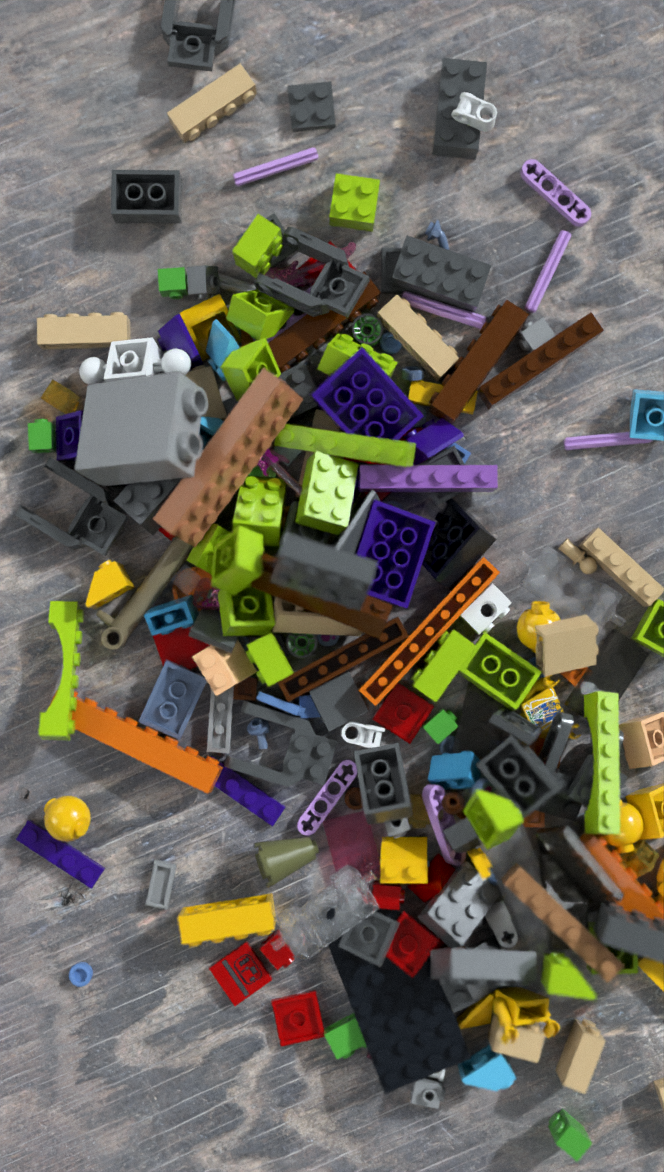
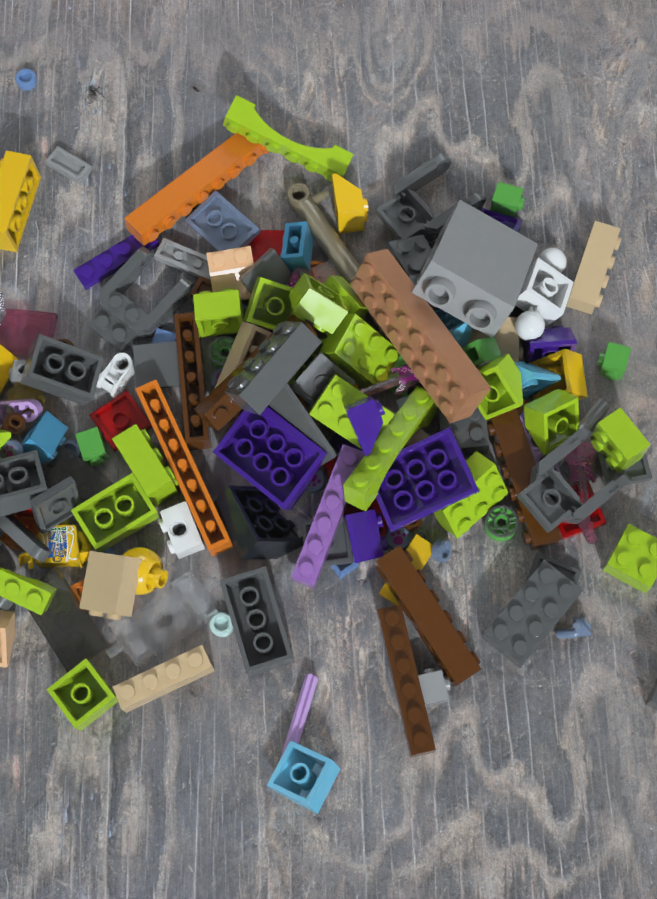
camera: 115 degrees right, 15 degrees down
(60, 398) = (538, 226): clear yellow brick -> none
(60, 854) = (133, 97): dark purple plate -> none
(66, 818) = (159, 105): yellow brick -> none
(203, 281) = (605, 386): dark grey brick -> none
(221, 397) = (482, 351): none -> bright green brick
(259, 727) = (162, 290): sand blue plate -> none
(280, 703) = (167, 321): medium blue tile -> none
(284, 857) = (40, 266): olive cone -> none
(325, 795) = (76, 326): lavender beam -> none
(340, 466) = (366, 421): none -> dark purple slope
(389, 344) = (481, 544): medium blue tile -> none
(417, 338) = (476, 567): tan brick -> none
(445, 310) = (495, 607): lavender axle -> none
(541, 506) = (256, 621): none -> dark grey brick
(547, 271) = (498, 730): lavender axle -> none
(552, 538) = (221, 624): none -> light aqua tile
(558, 190) = (581, 775): lavender beam -> none
(587, 564) = (199, 638): tan pin -> none

